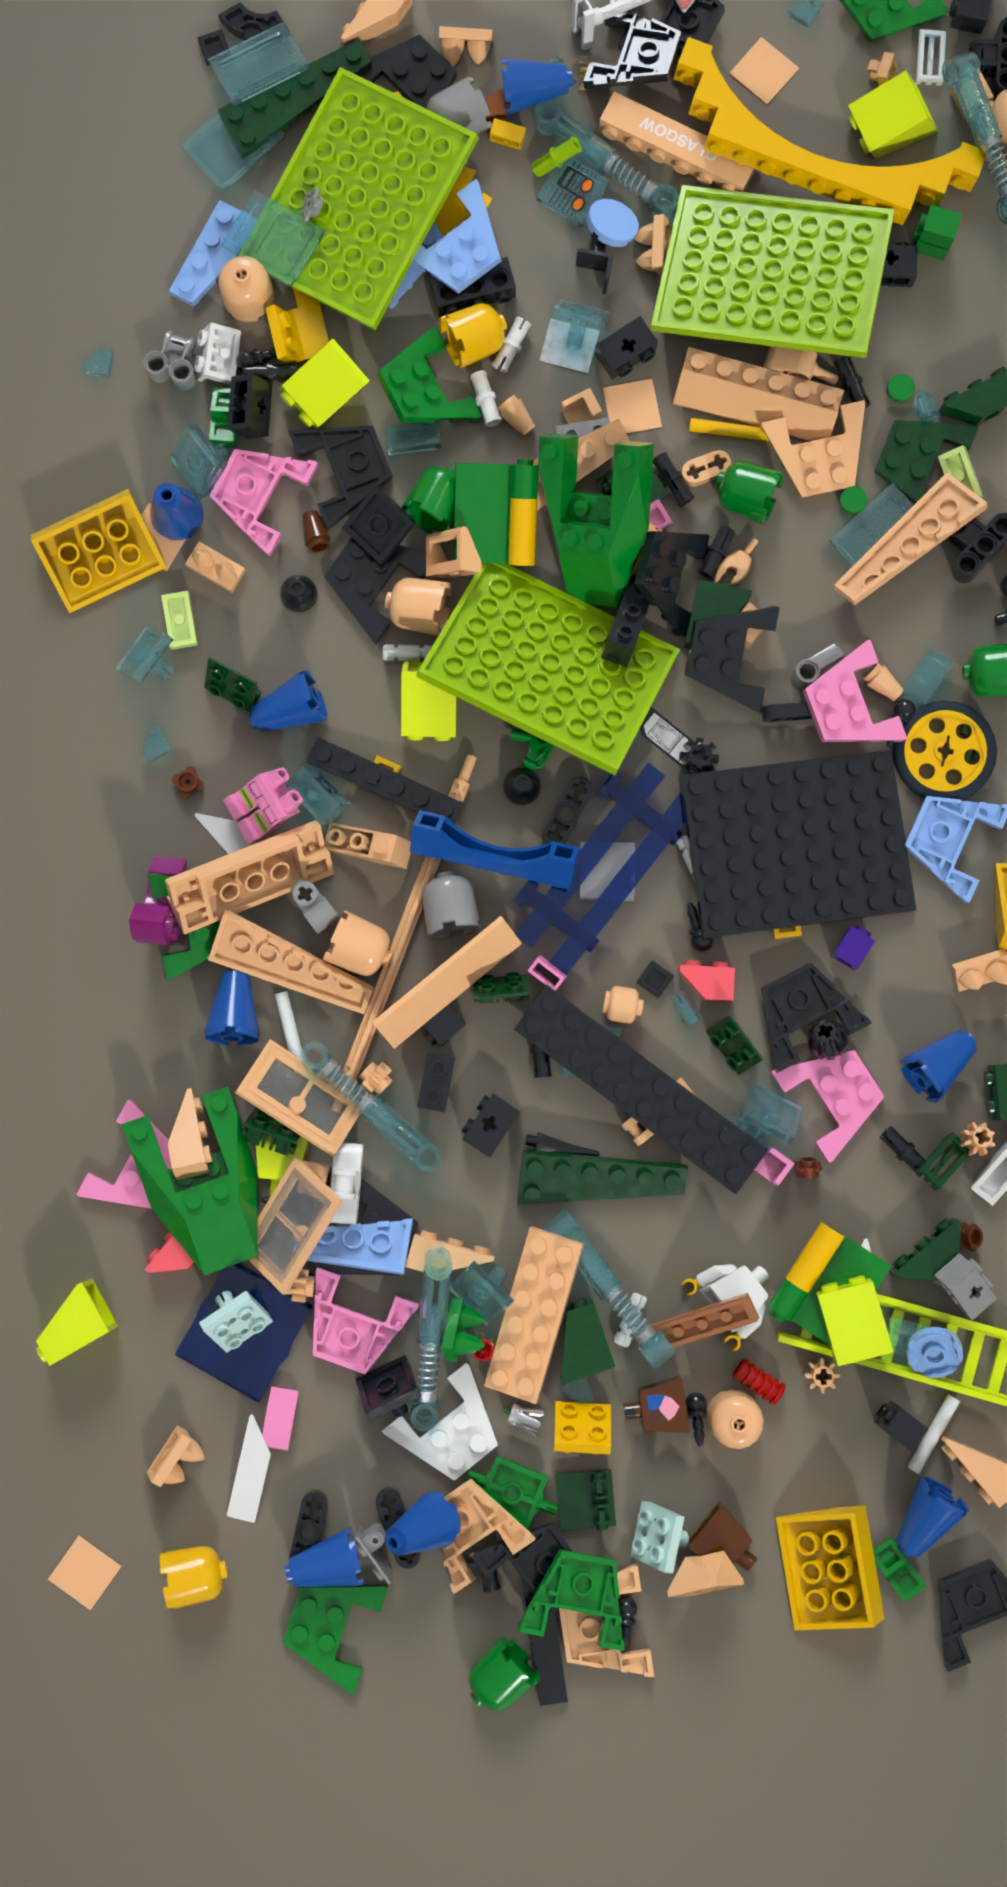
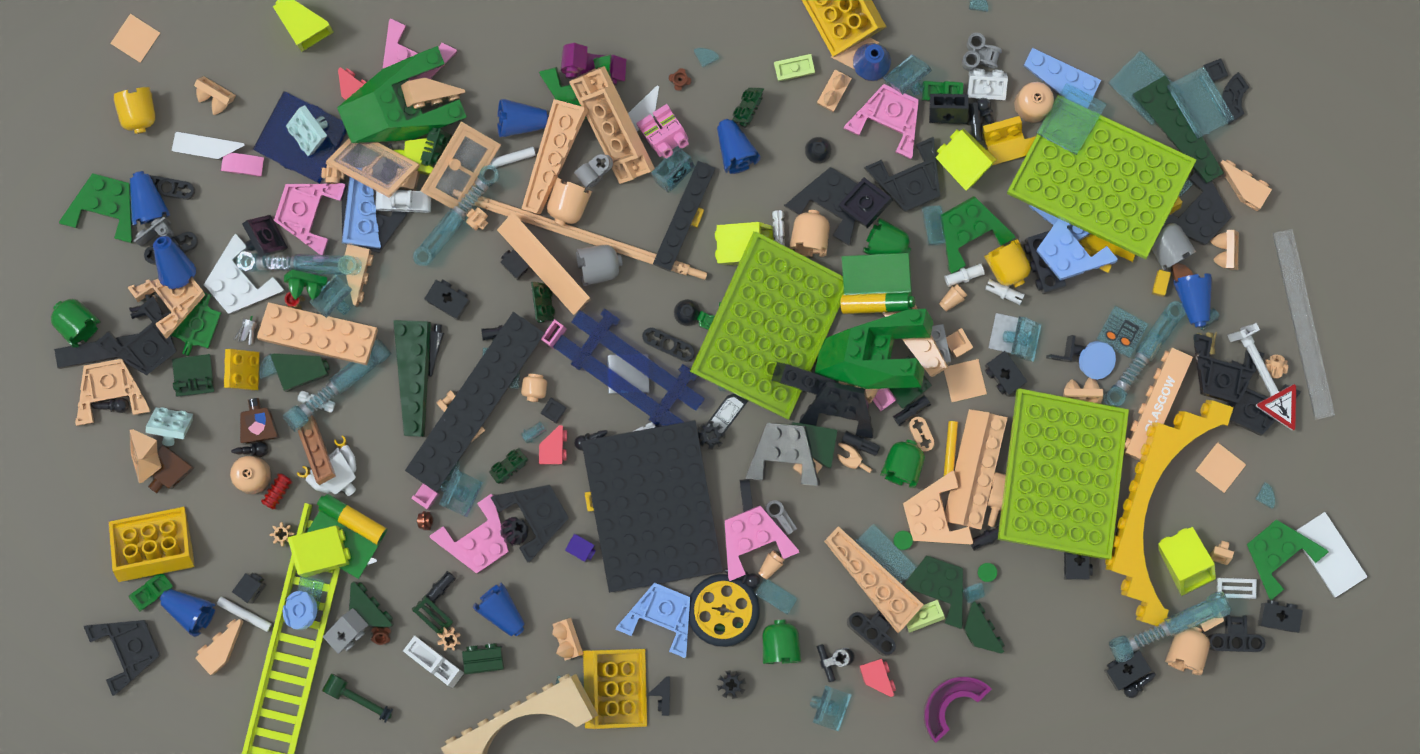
camera: 85 degrees right, 0 degrees up
(146, 656) = (766, 45): clear light blue tile -> none
(312, 204) = (1093, 144): light grey plate -> none
(315, 533) = (861, 159): reddish brown cone -> none
(368, 845) = (639, 206): light nougat slope -> none
(436, 1082) = (475, 260): black brick -> none
(440, 838) = (643, 256): blue arch -> none
(467, 559) = (841, 246): light nougat tile -> none
(556, 157) = (1143, 318): lime axle -> none
(581, 1585) = (135, 373): green wing -> none
(936, 232) = (1100, 592): green piece -> none

